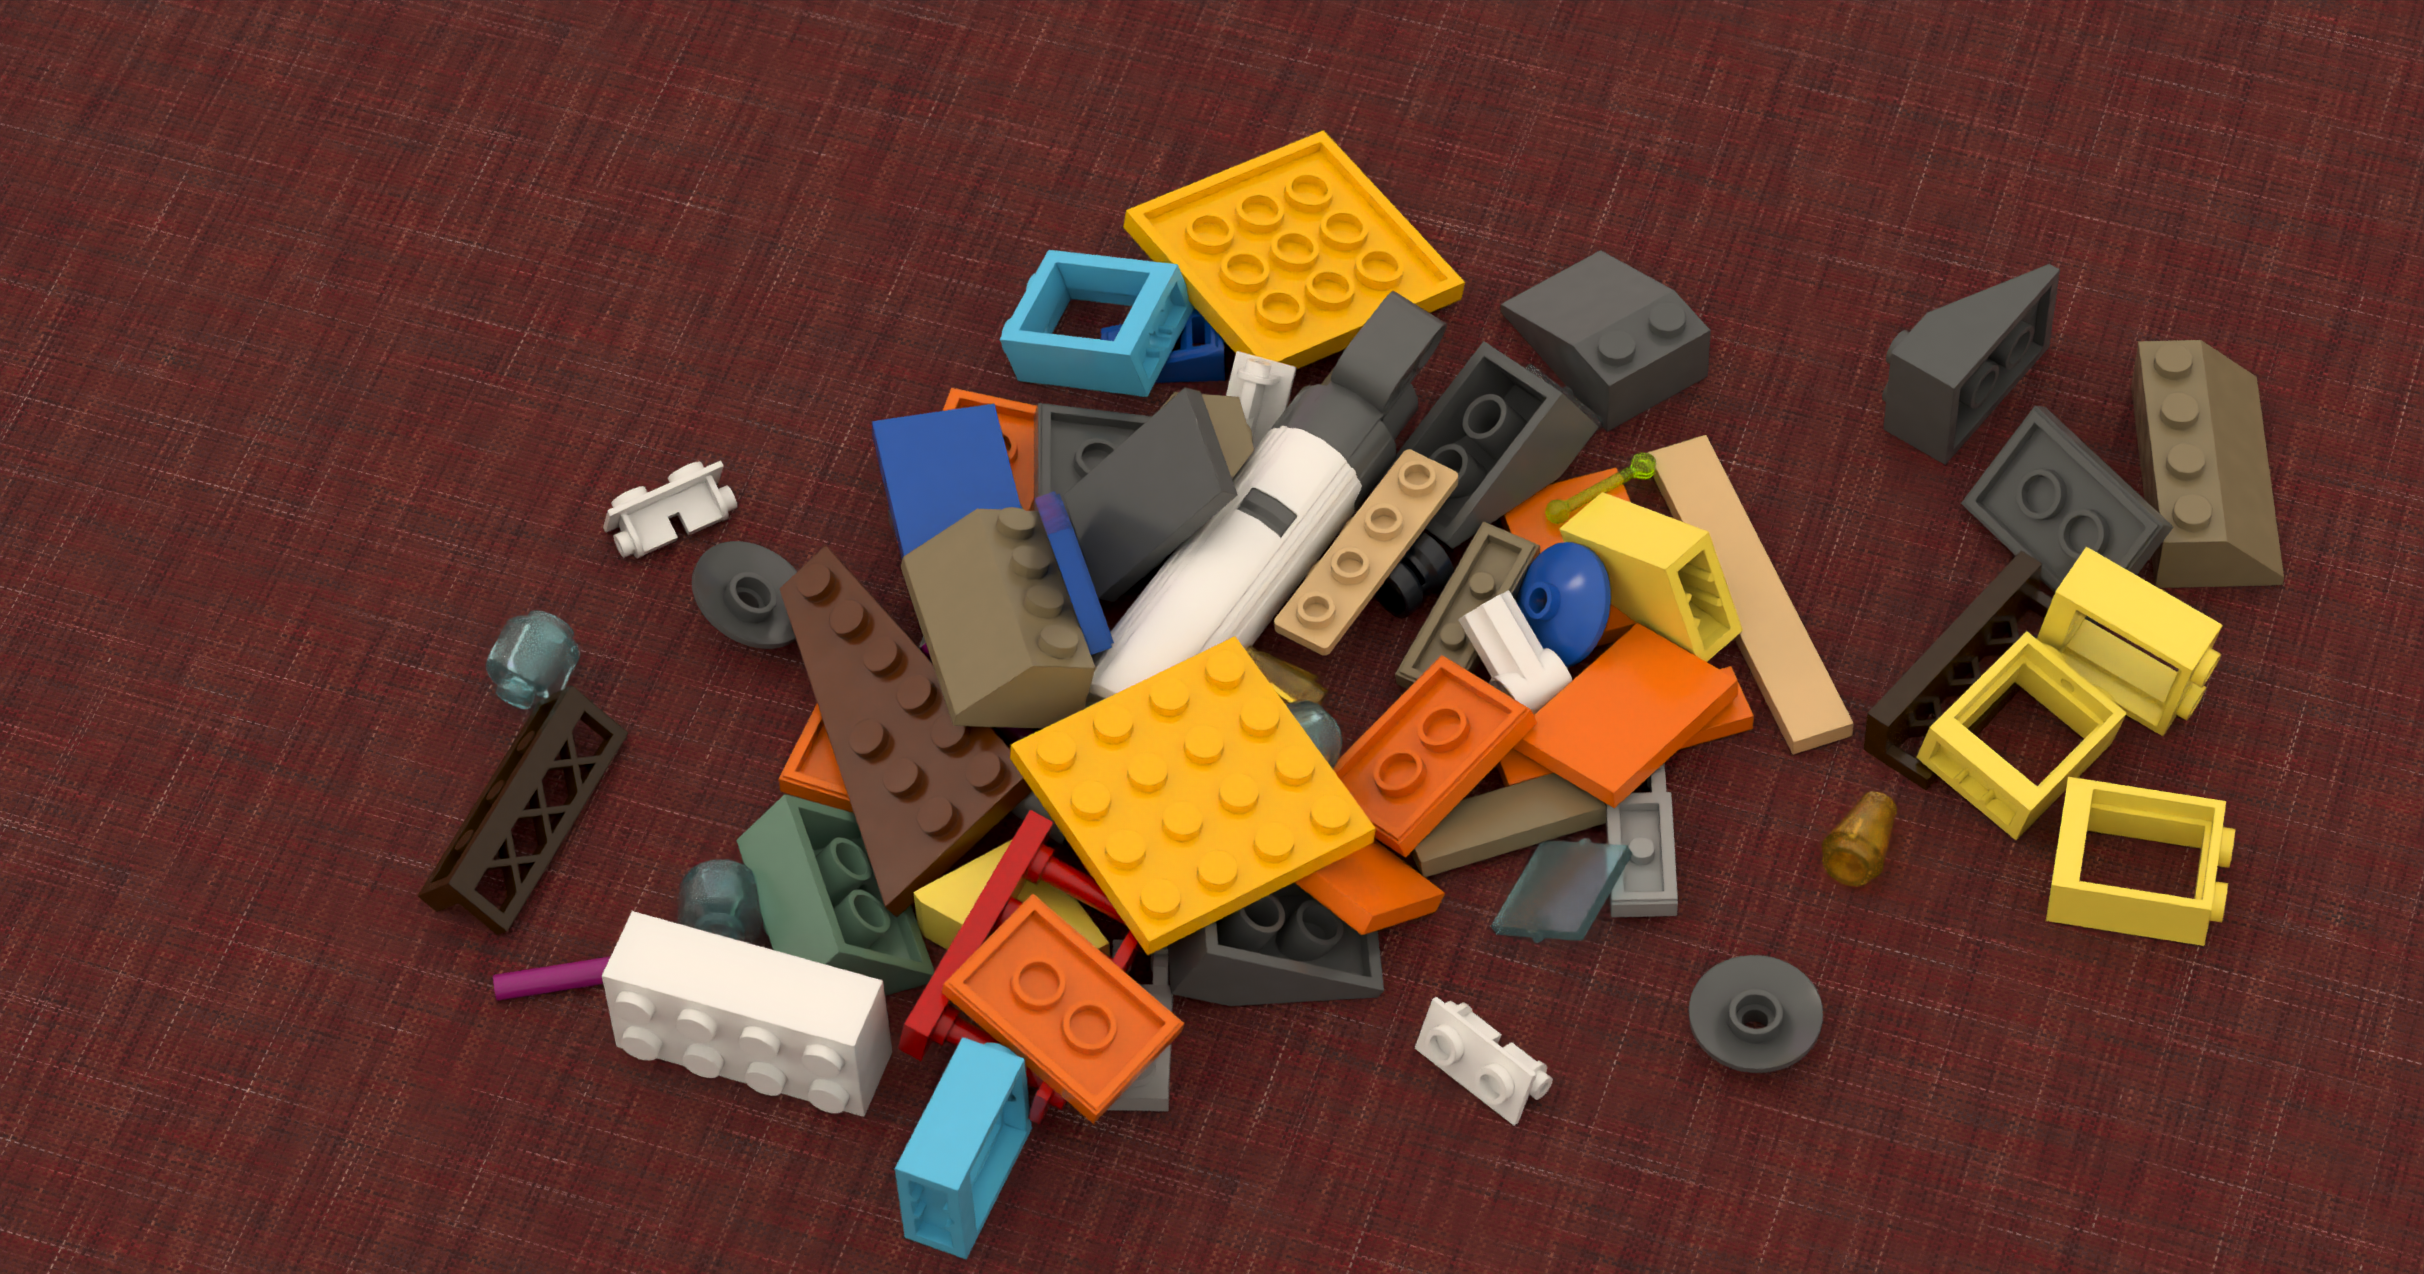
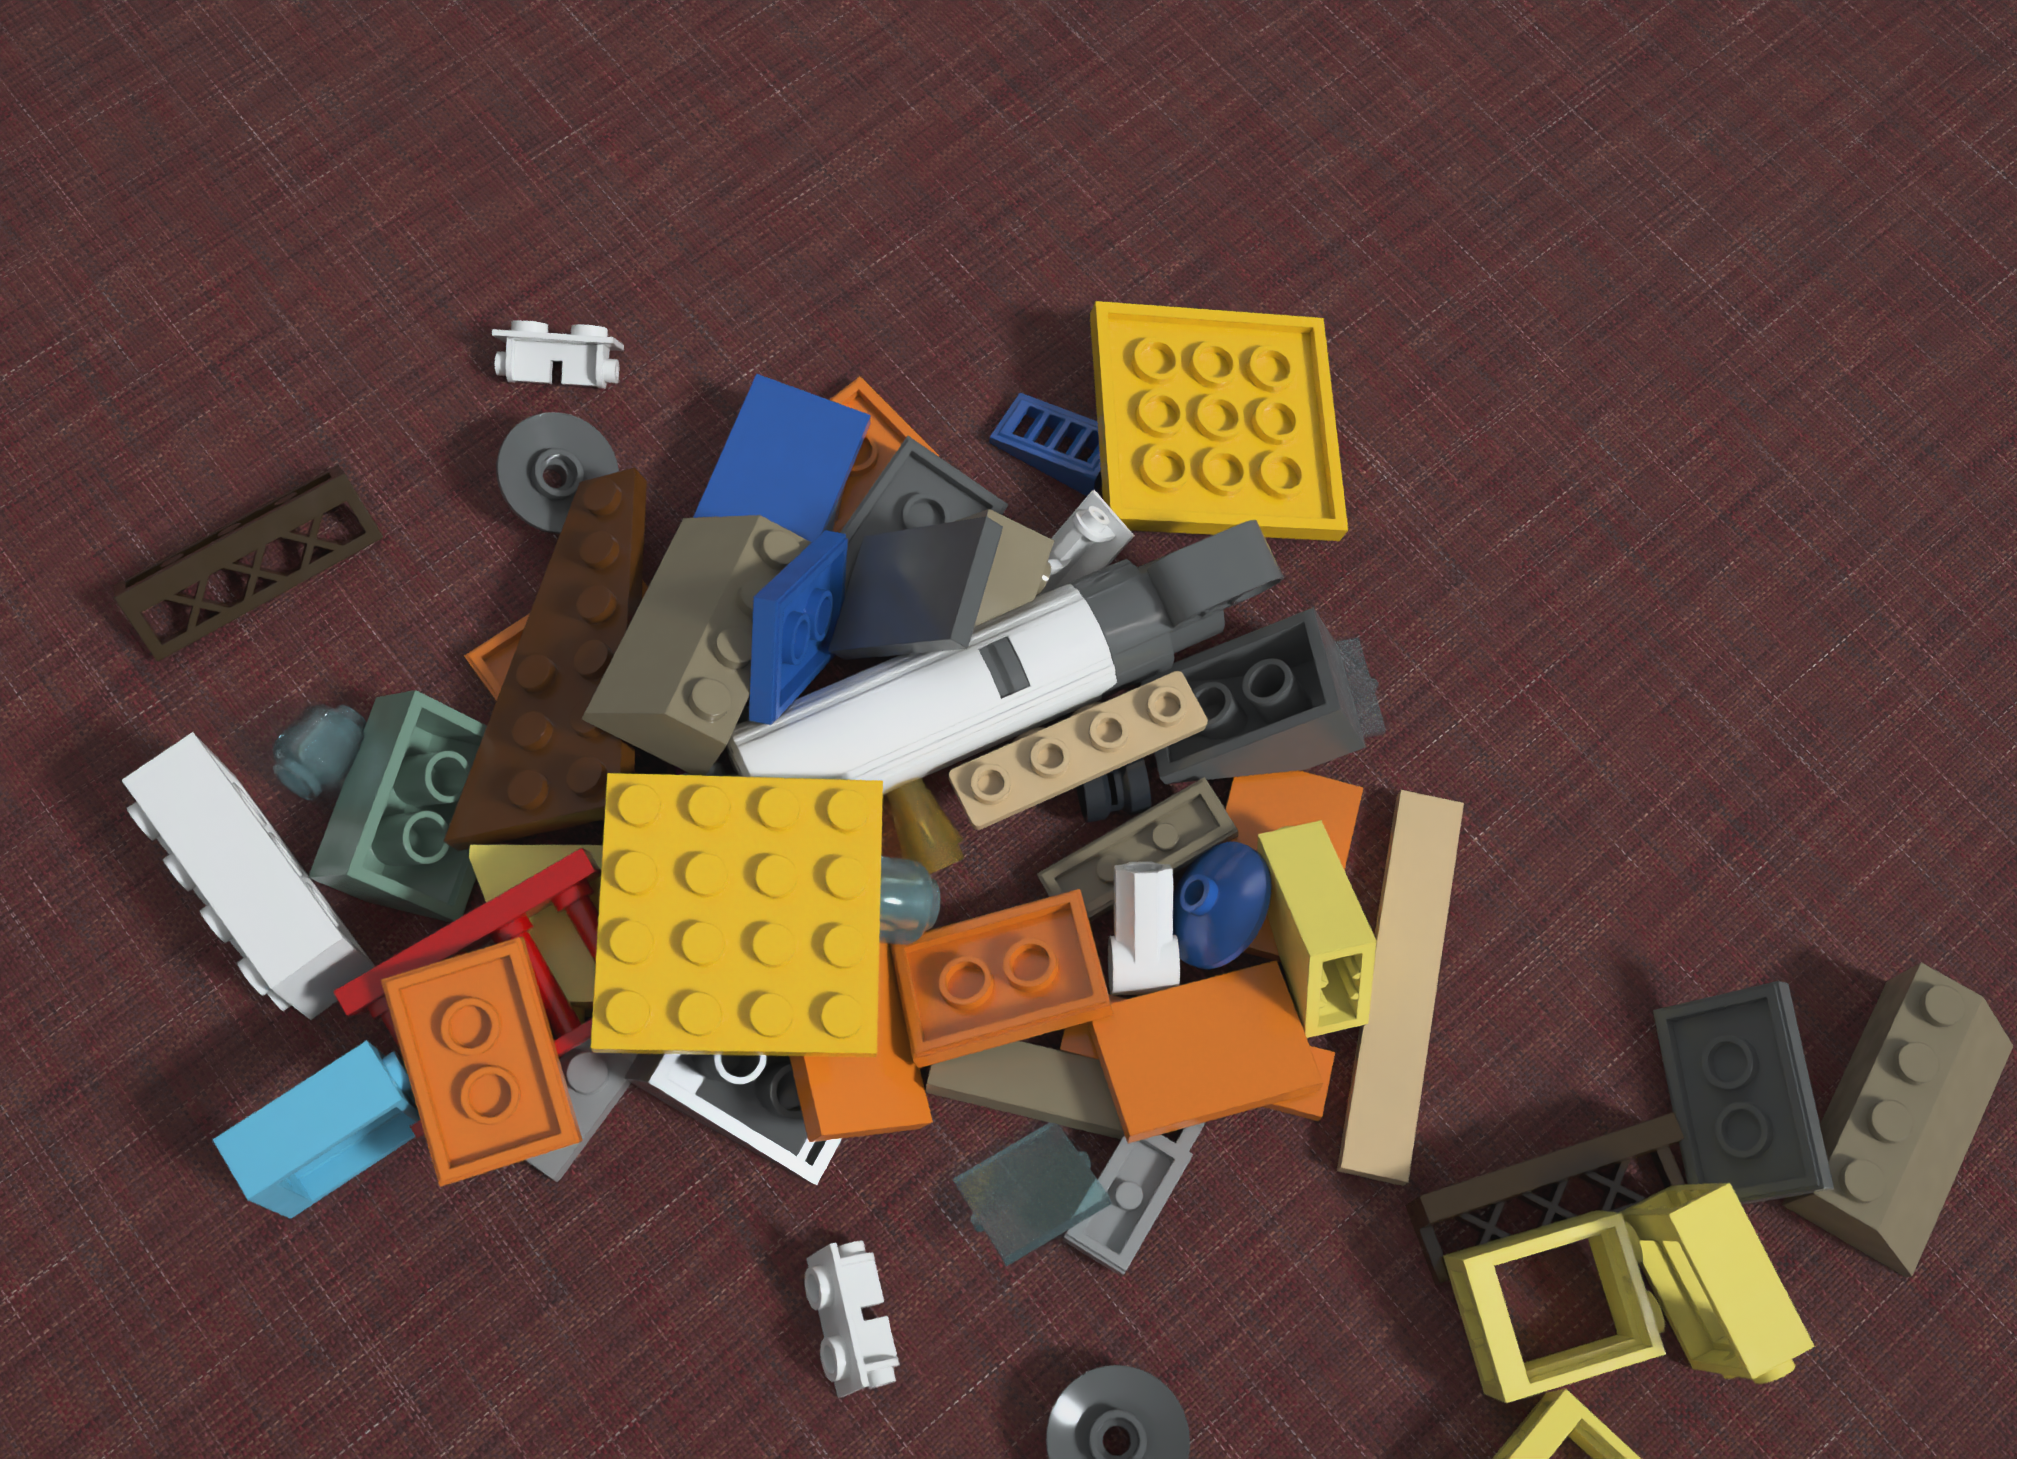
camera: 25 degrees right, 15 degrees up
(532, 658) = (347, 427): clear light blue head -> none
(549, 979) = (170, 732): magenta bar -> none
(1117, 366) = (1012, 439): medium azure window -> none
(1612, 336) = (1444, 654): dark grey slope -> none
(1642, 467) = (1384, 802): clear neon green hinge -> none
(1860, 840) = (1336, 1311): clear yellow cone -> none
(1966, 361) = (1742, 878): dark grey slope -> none

